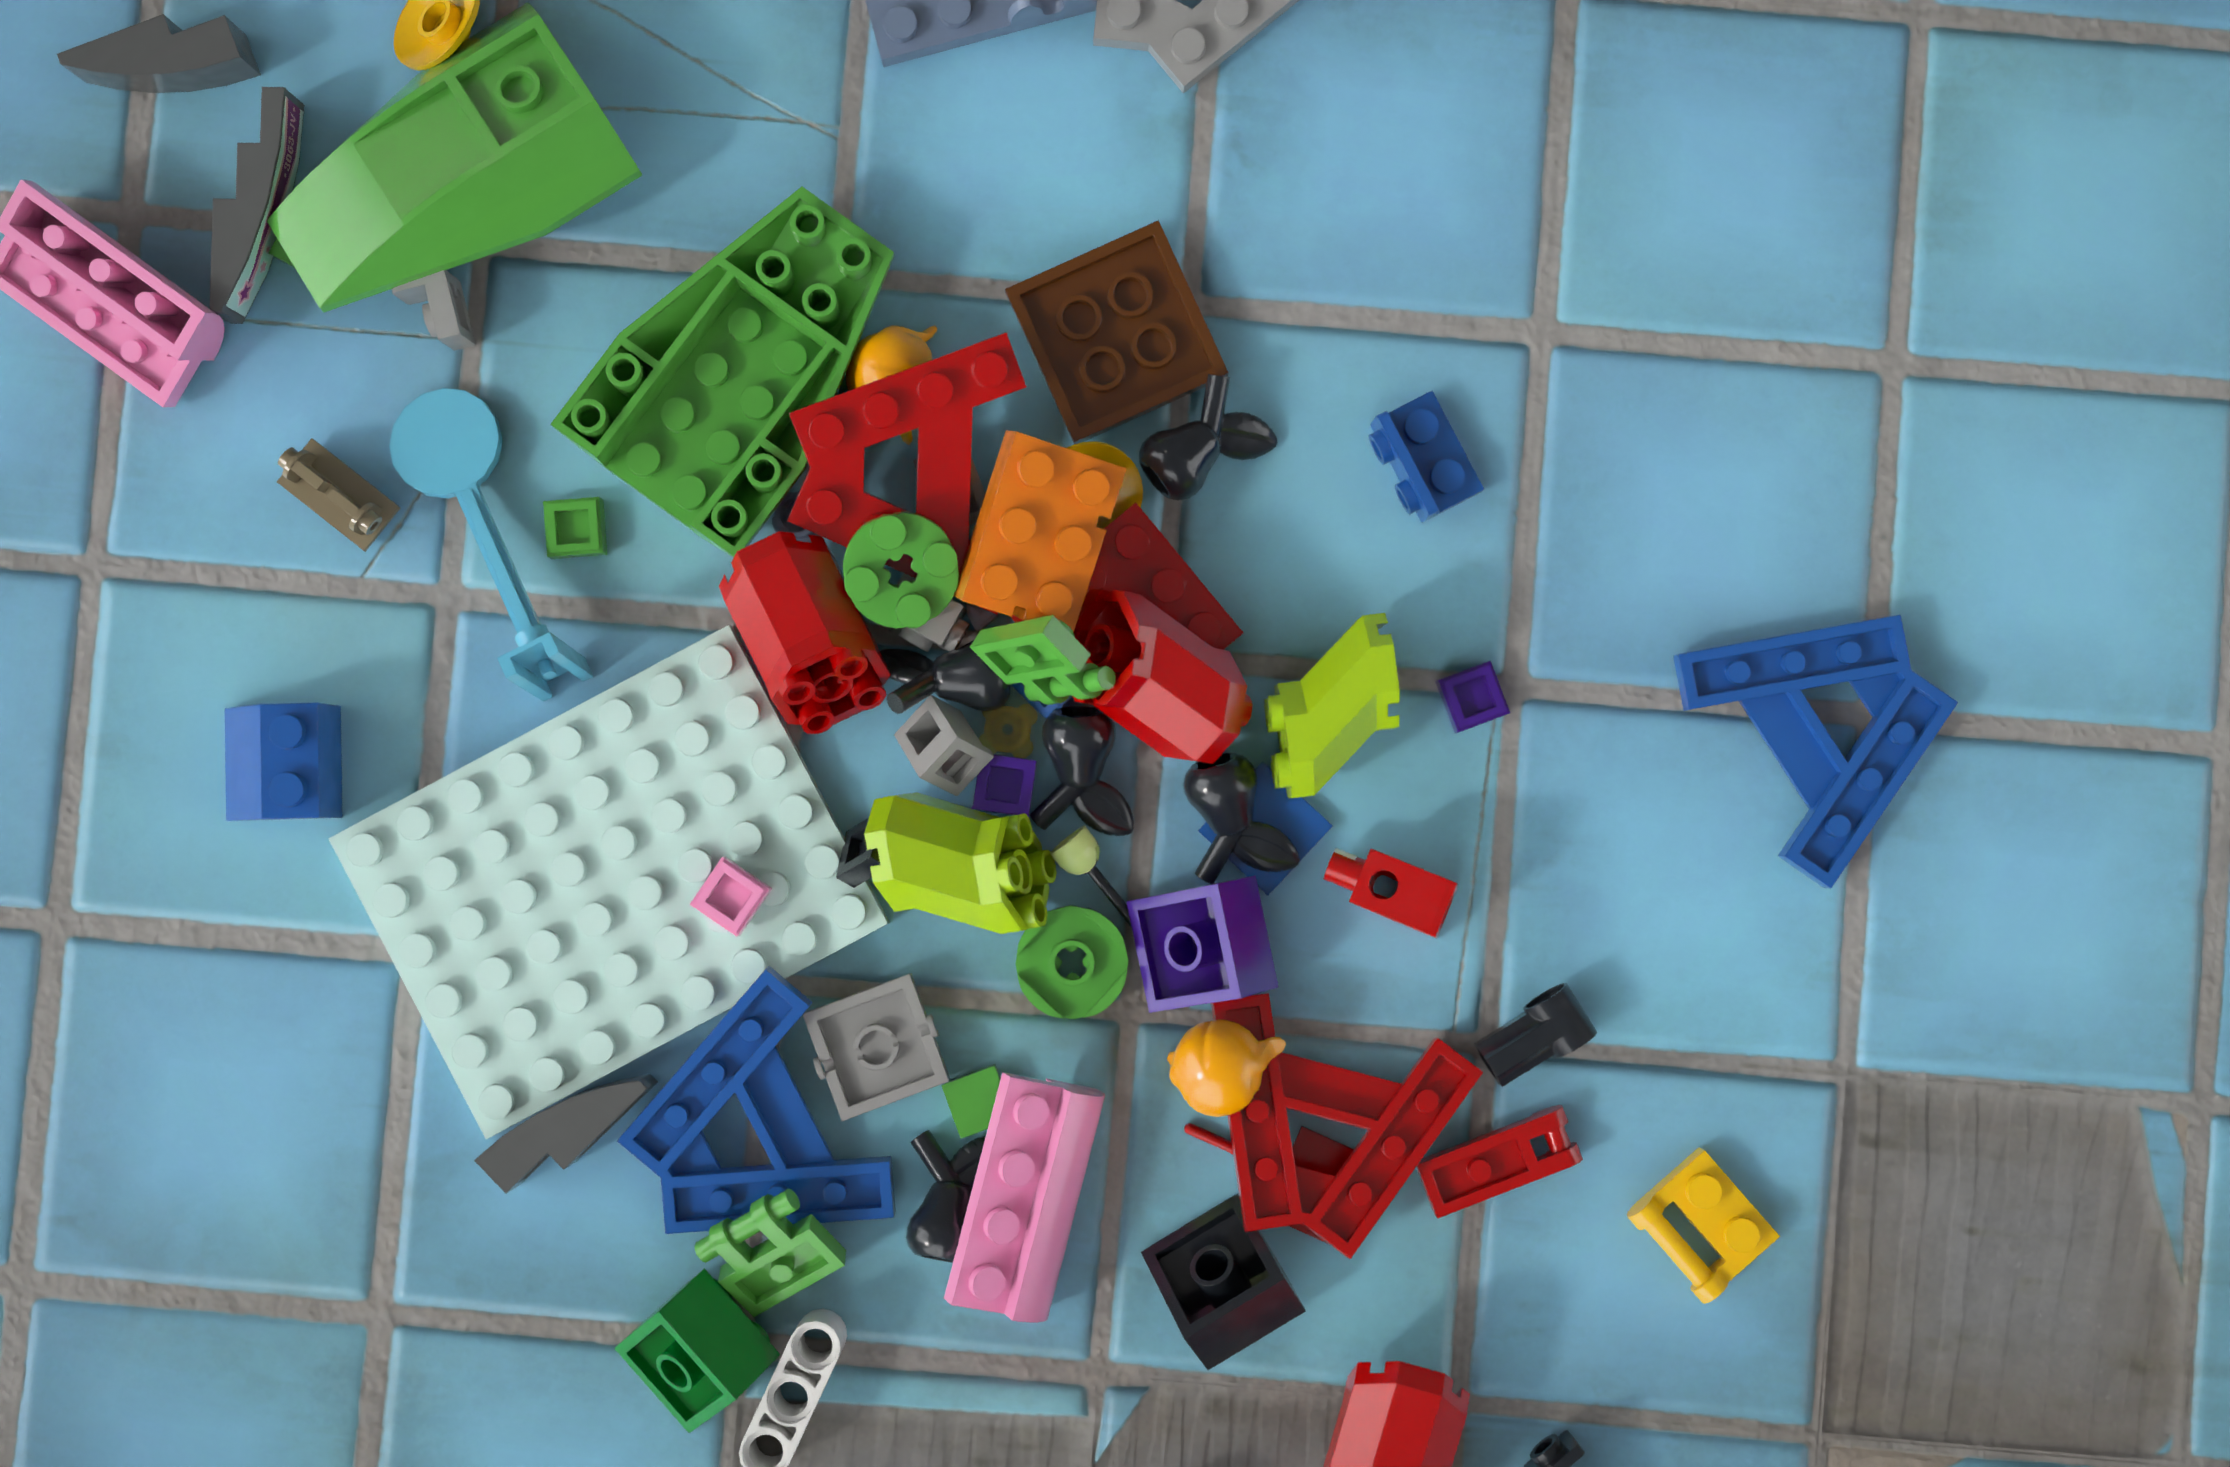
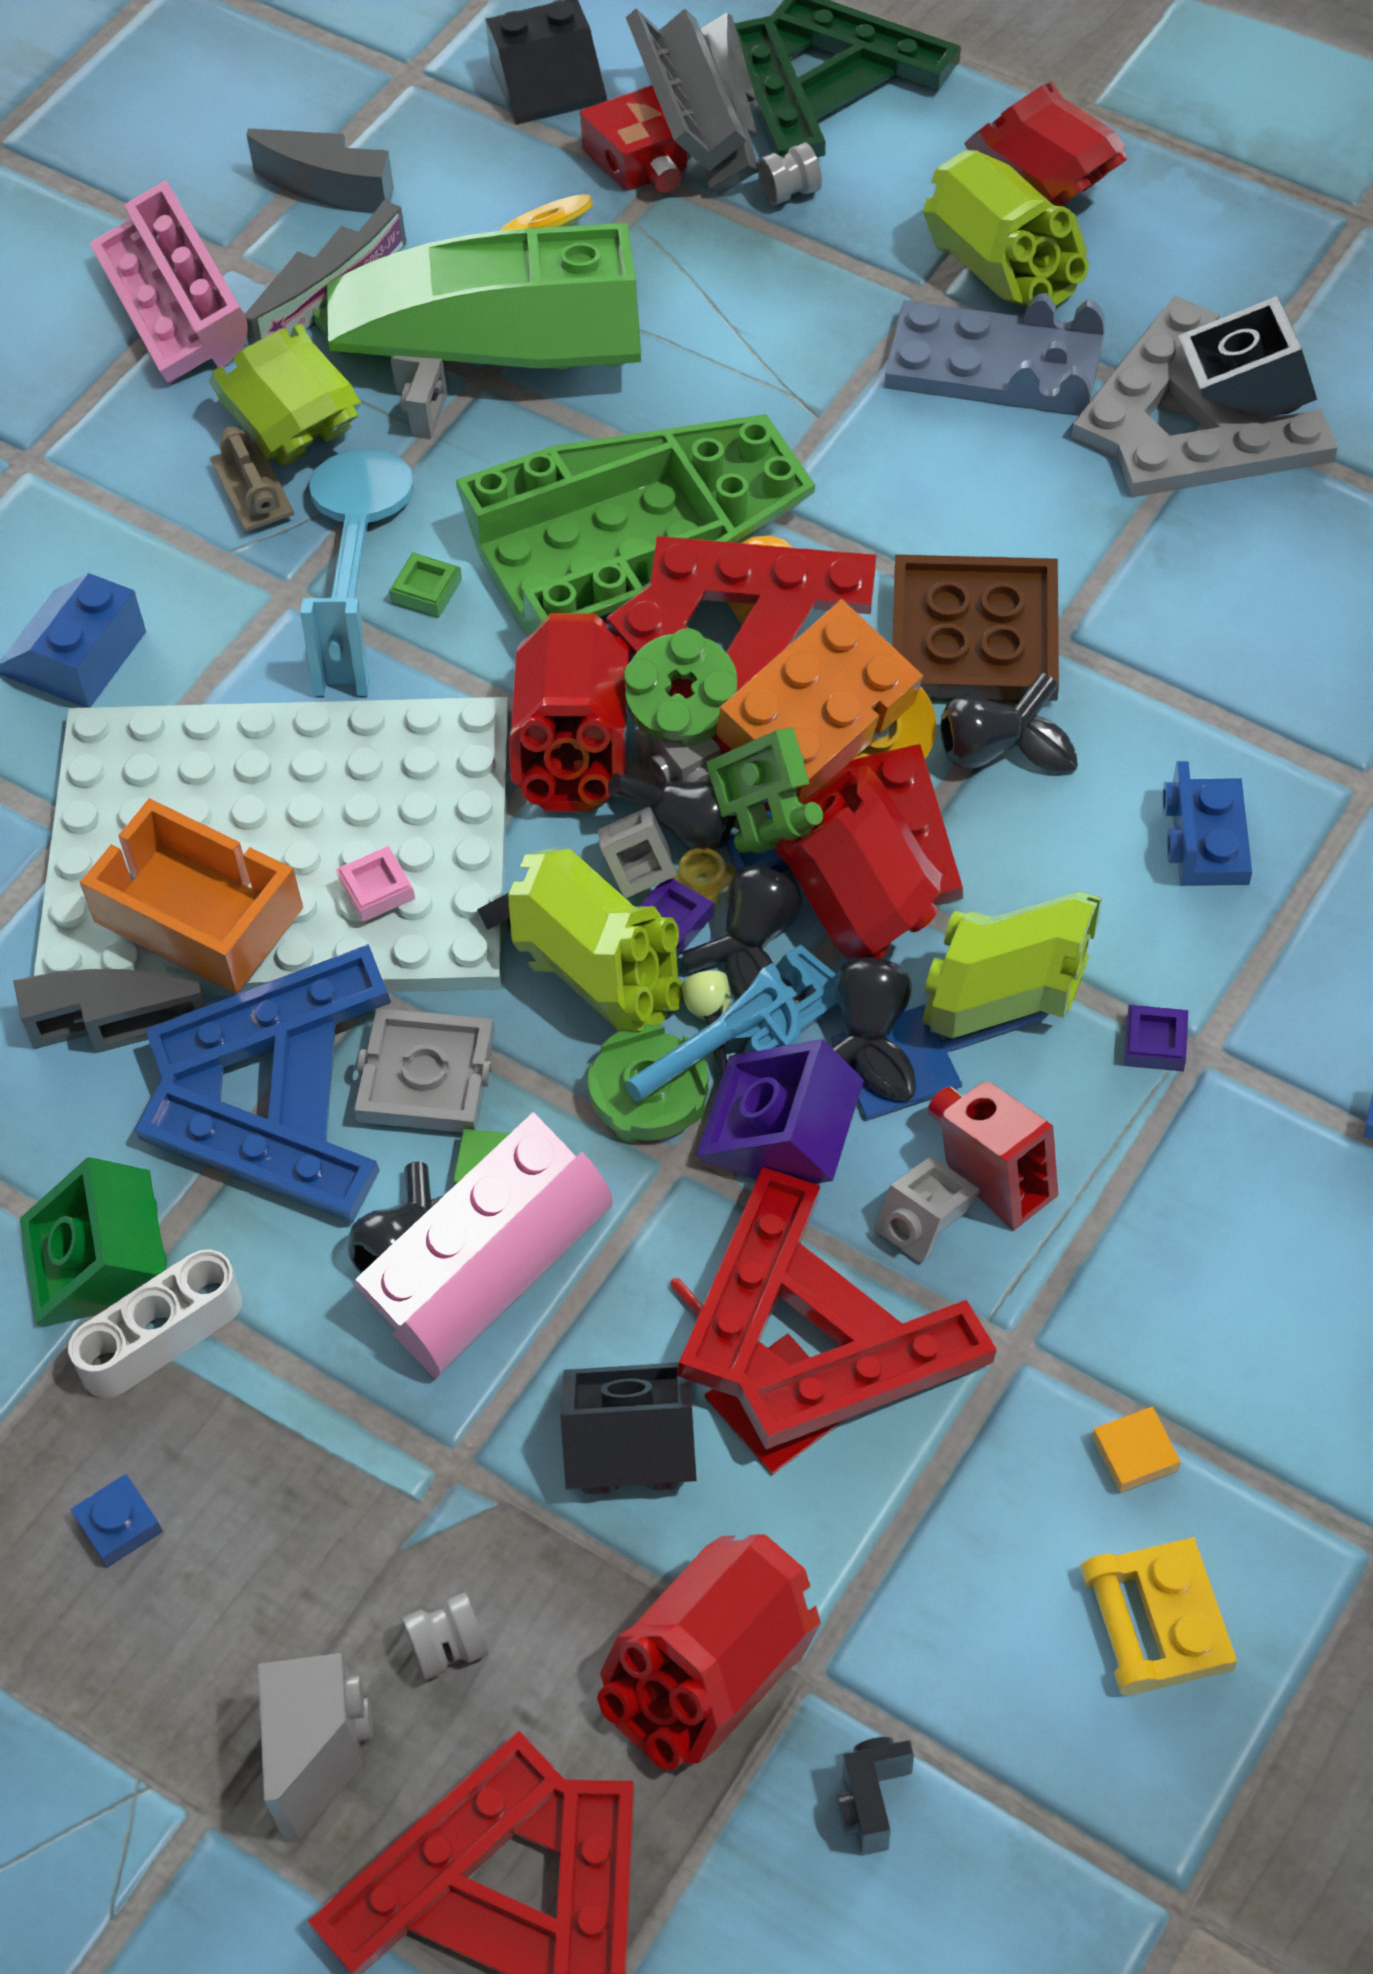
camera: 35 degrees right, 30 degrees down
(315, 388) = (286, 394): none -> lime brick
(585, 1012) = (192, 895): none -> orange piece
(778, 1266) = (221, 1201): bright green plate -> none
(1138, 854) = (762, 1013): none -> dark azure piece
(1220, 1066) = (738, 1210): light orange hair -> none
(1362, 963) = (923, 1206): none -> light grey bracket
(1497, 1162) = (970, 1446): red plate -> none
(1549, 1027) = (1084, 1344): black piece -> none
(1625, 1092) = (1136, 1449): none -> light orange tile

